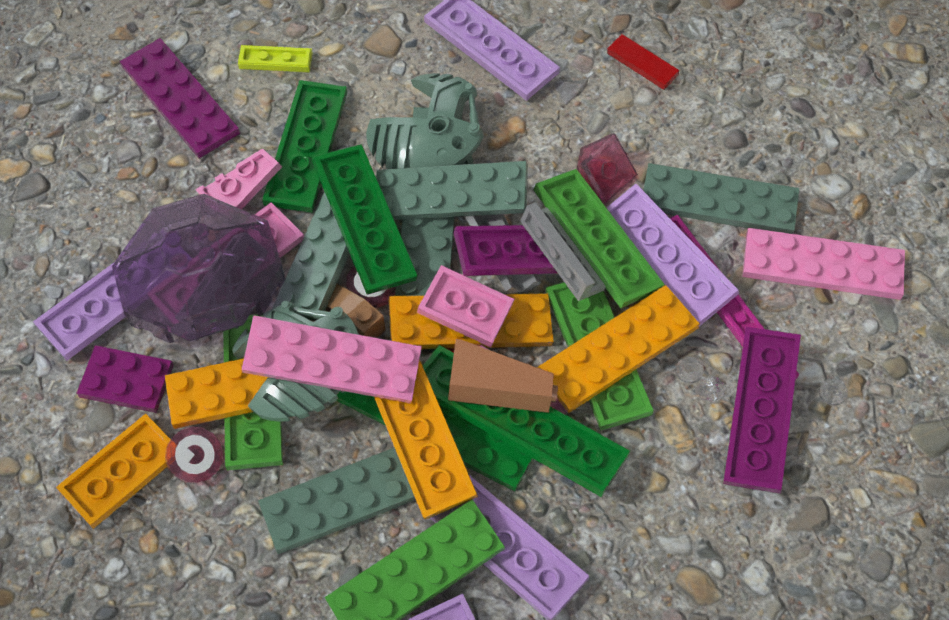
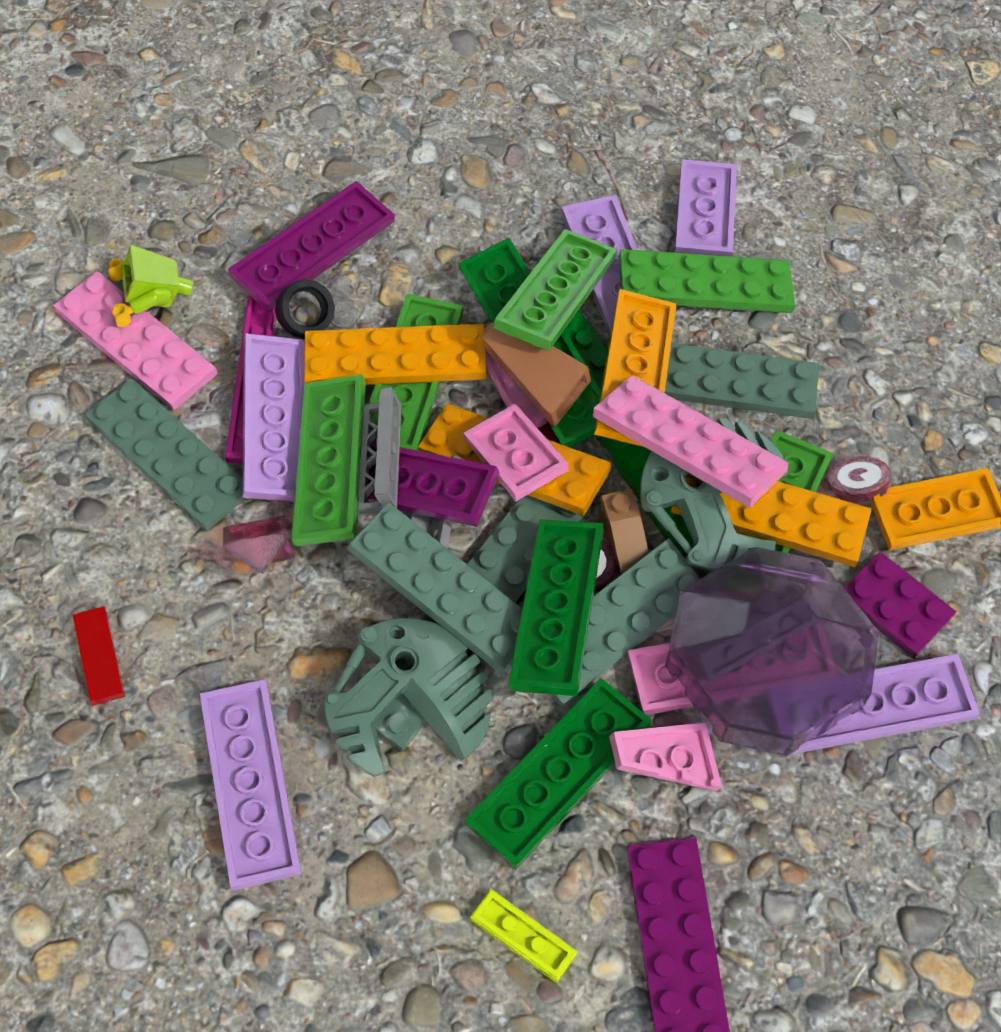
camera: 150 degrees left, 0 degrees up
(525, 454) = (555, 290): none -> bright green plate
(706, 332) = (321, 294): none -> black tyre
(852, 297) = (147, 282): none -> lime torso

